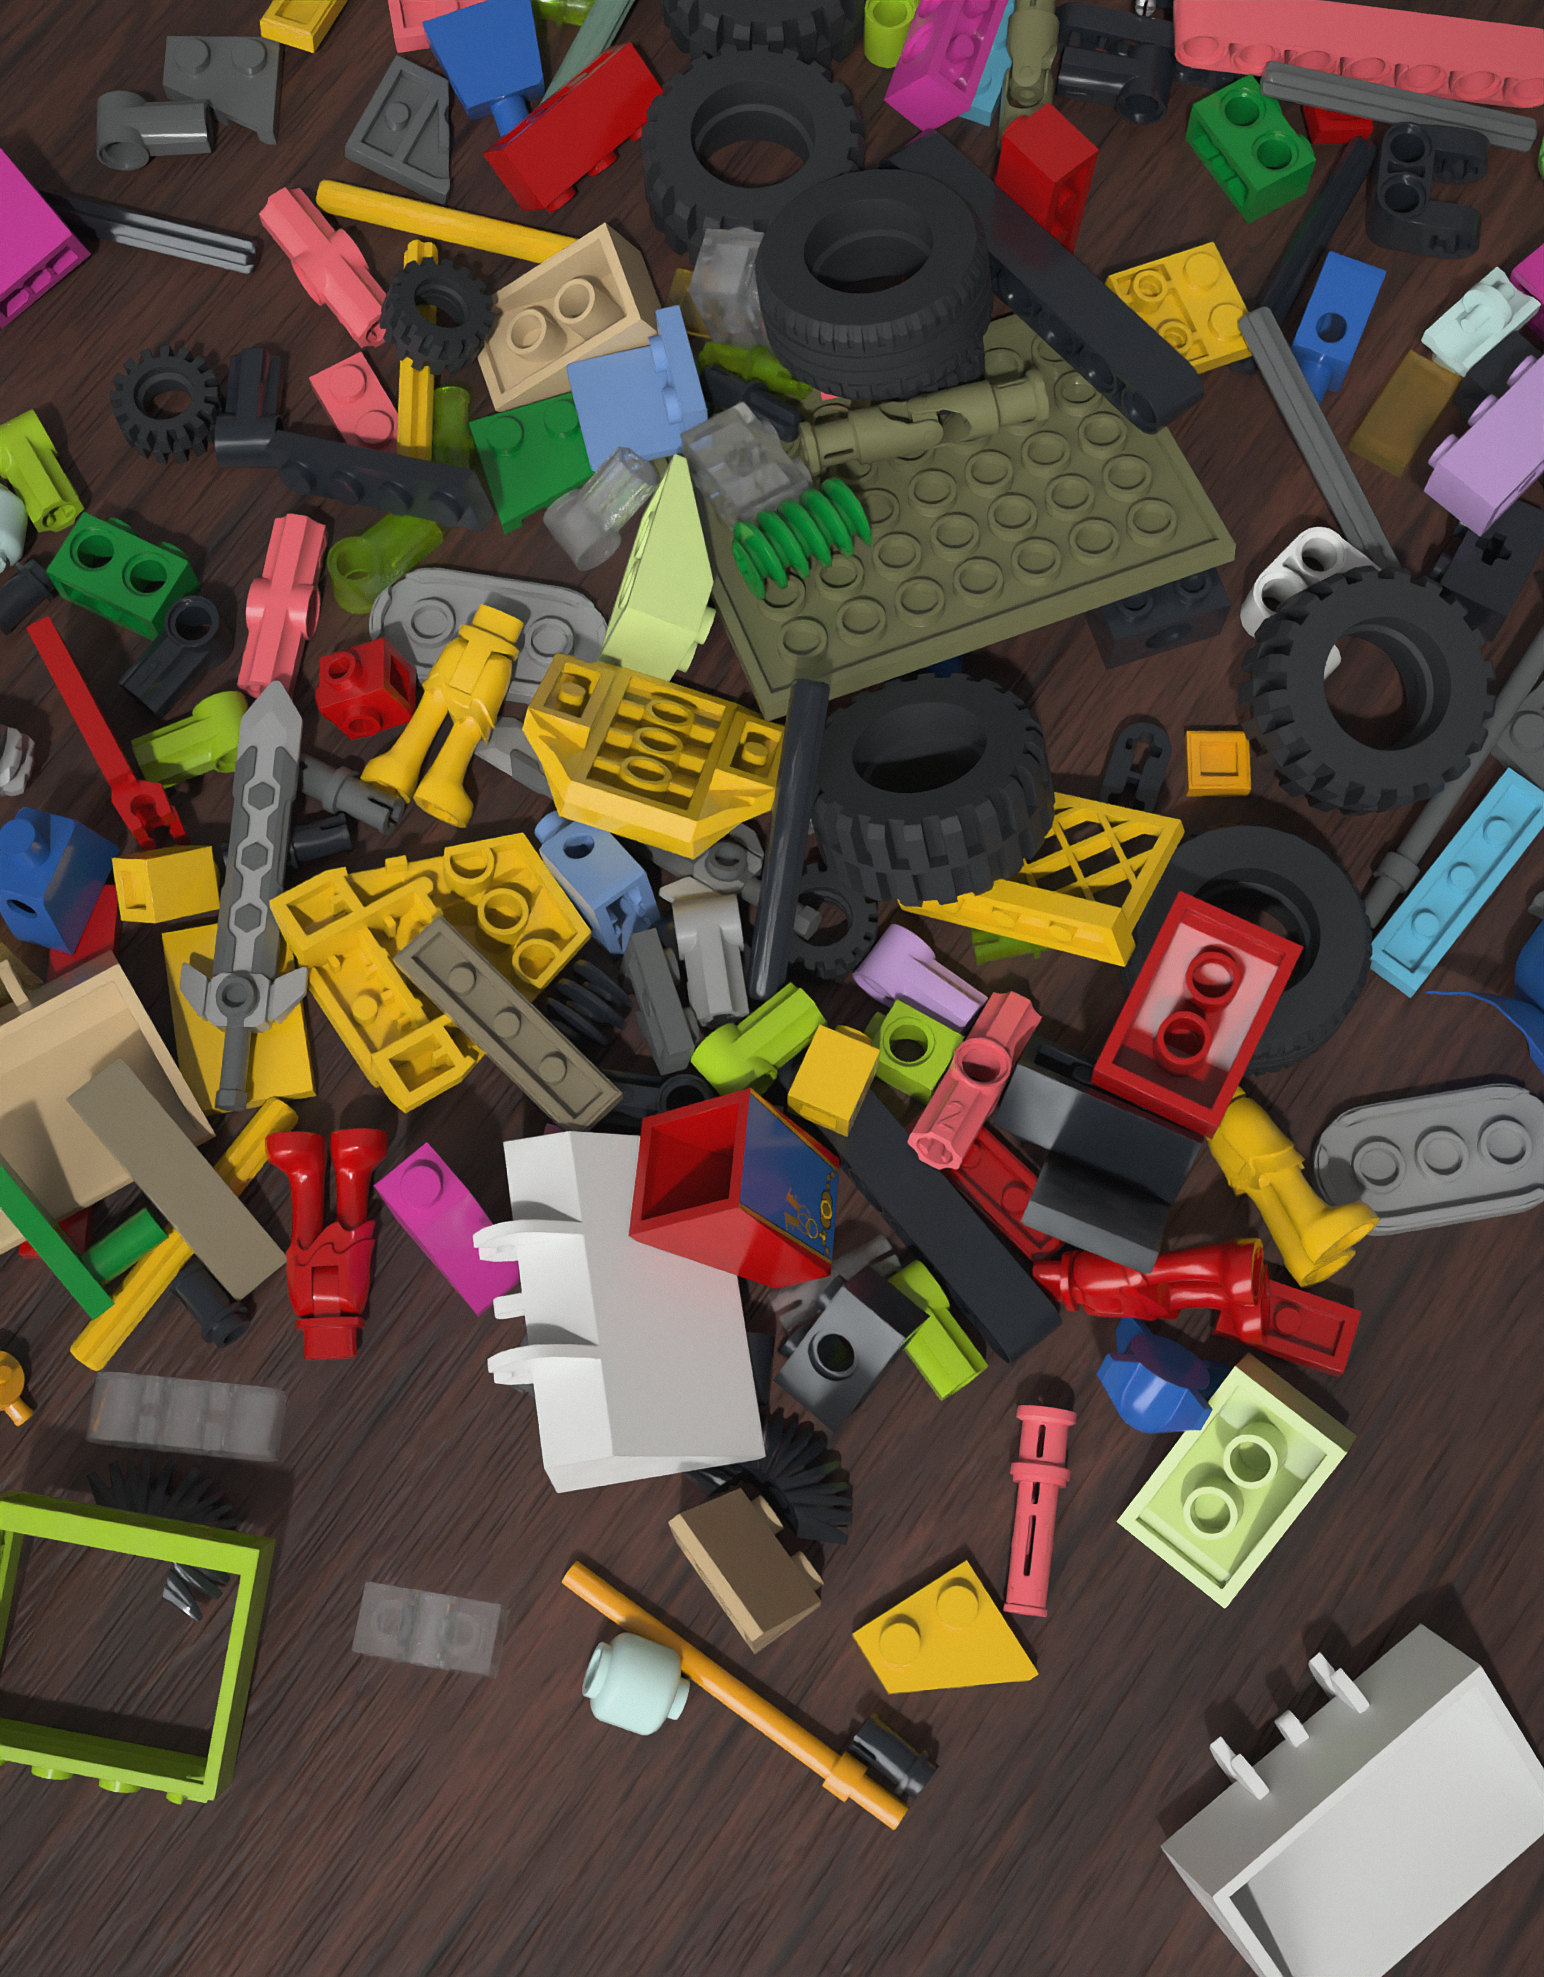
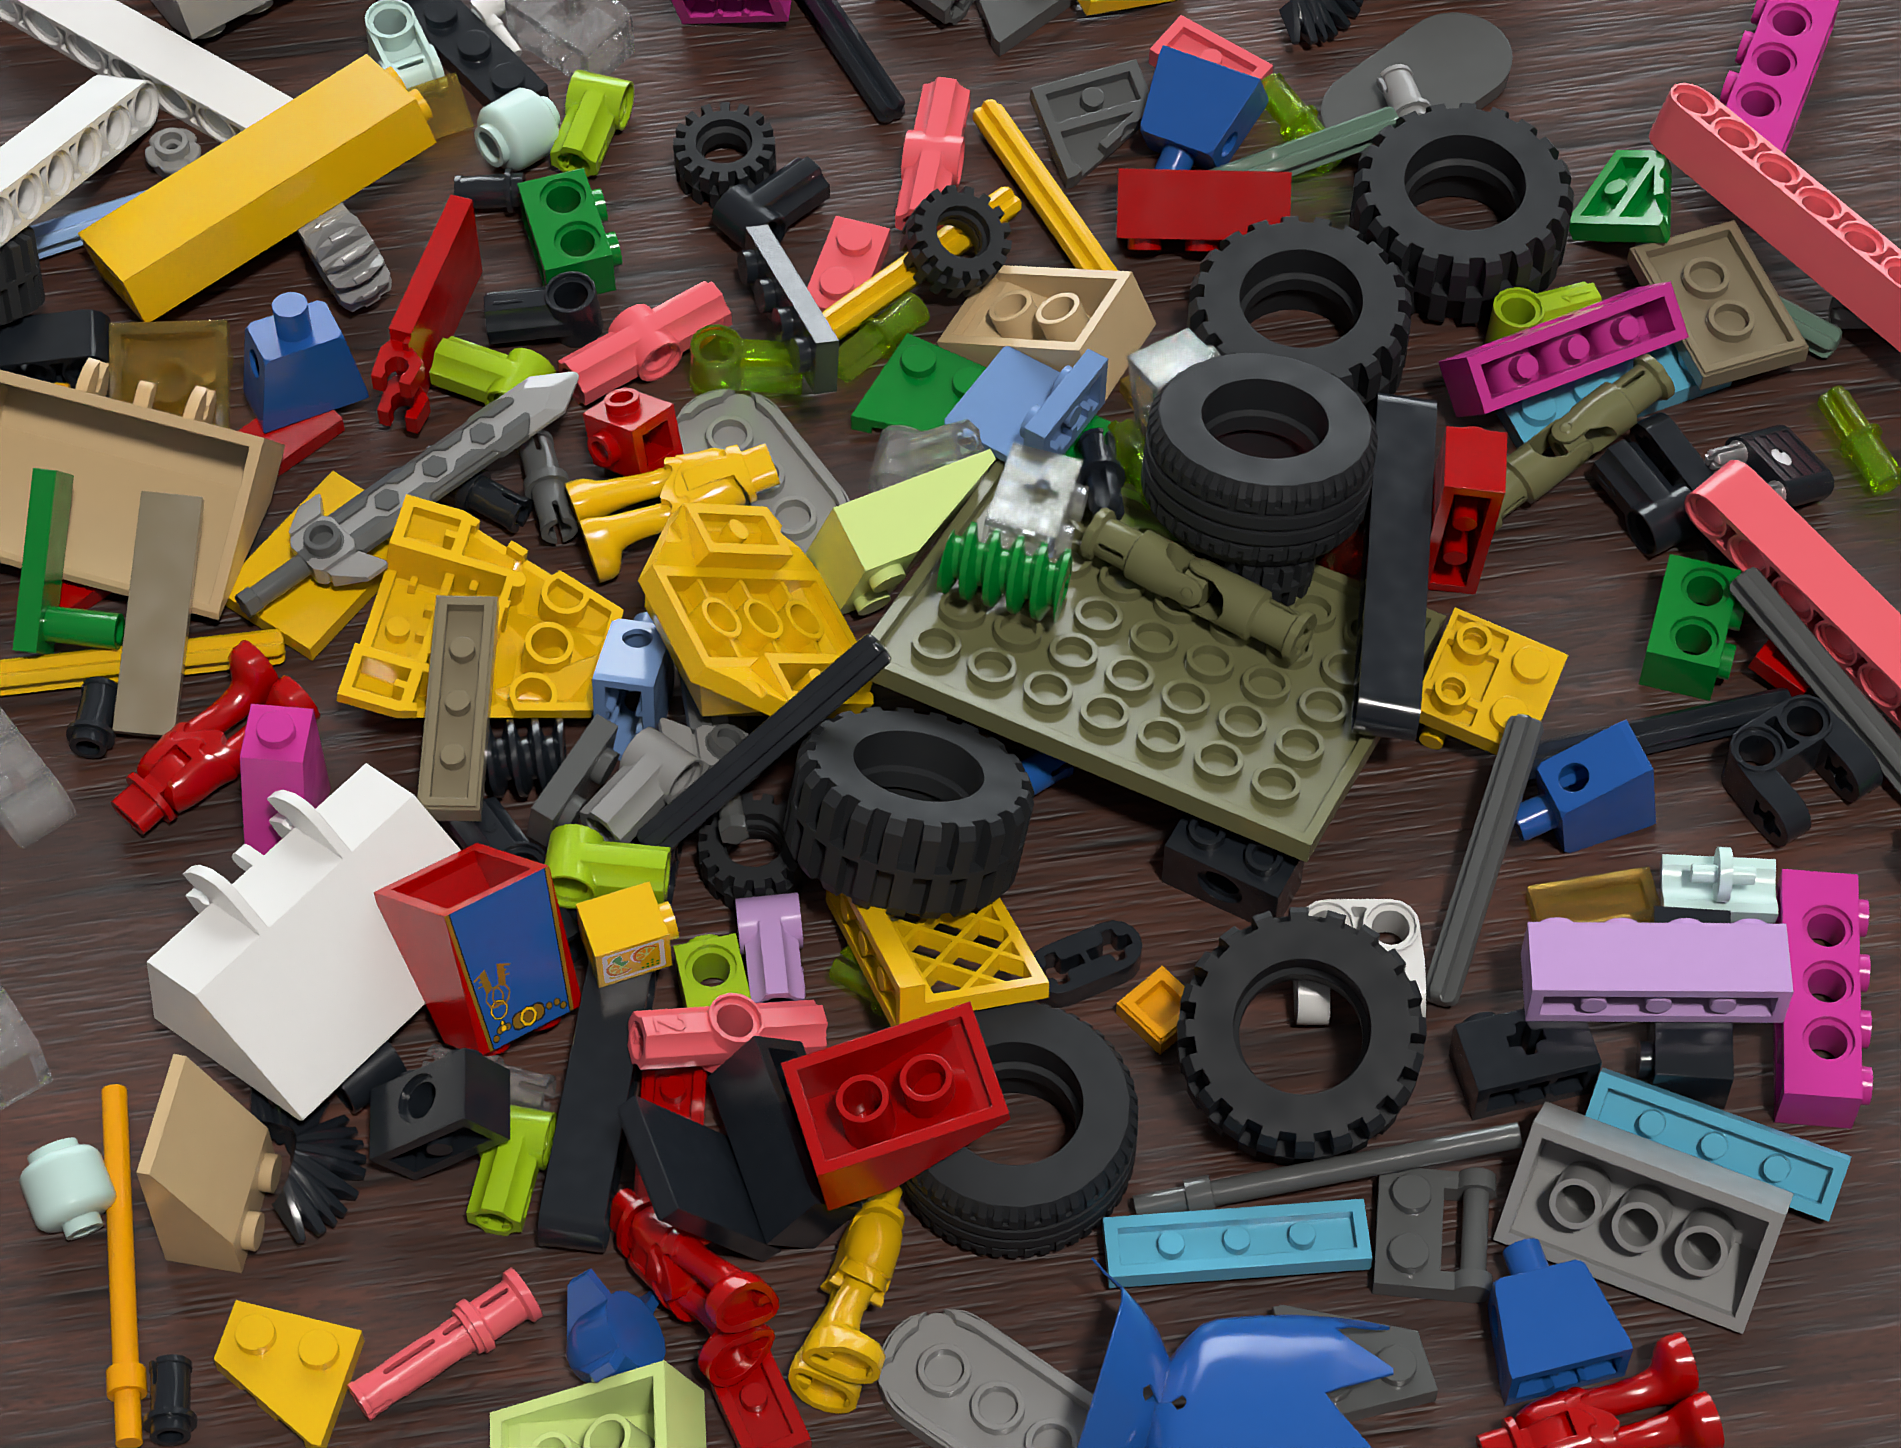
camera: 45 degrees right, 15 degrees down
(166, 883) = (366, 436): yellow brick -> none

